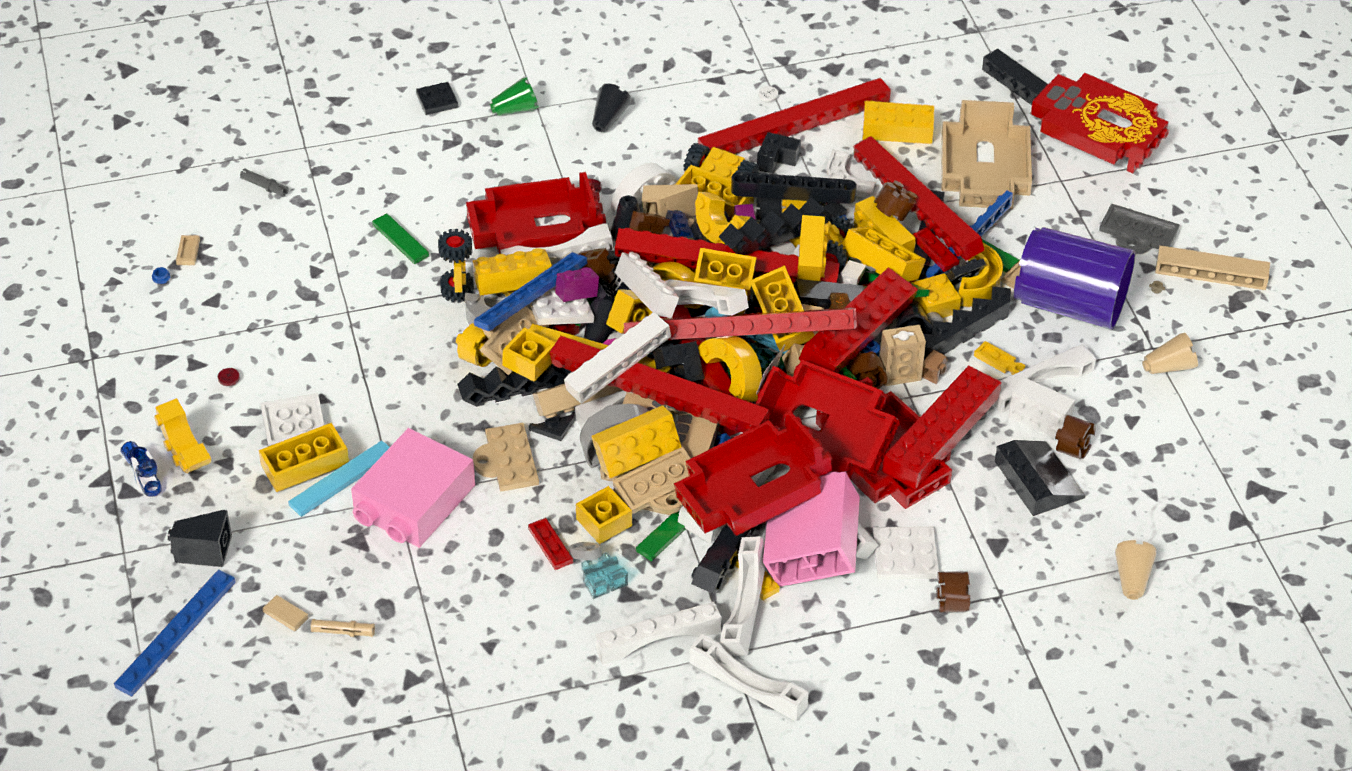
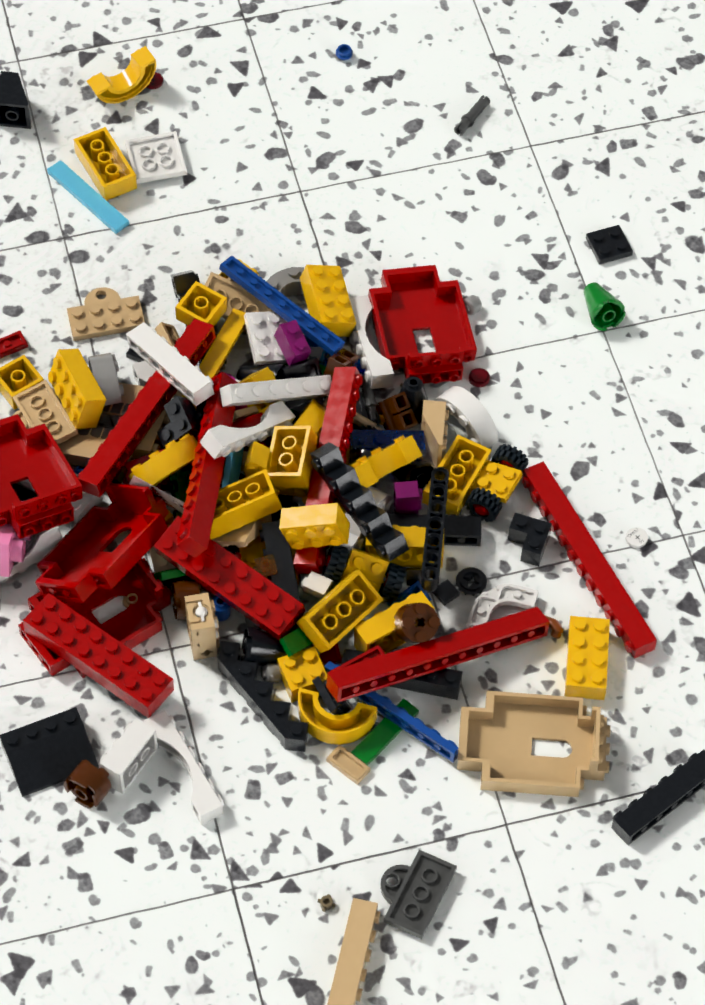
camera: 90 degrees right, 10 degrees up
(143, 467) = (97, 55): clear blue connector -> none
(188, 250) = (380, 69): tan tile -> none
(228, 377) = (215, 110): dark red piece -> none
(400, 238) = (397, 224): green tile -> none
(412, 488) = (59, 239): bright pink brick -> none
(456, 247) = (326, 243): black plate -> none
(609, 106) = (591, 384): black cone -> none
(934, 366) = (203, 667): medium nougat brick -> none
(998, 358) = (214, 729): yellow plate -> none
(1072, 111) = (607, 829): red panel -> none
(1074, 276) = (301, 793): dark purple container -> none
(1171, 356) = (205, 898): tan cone -> none

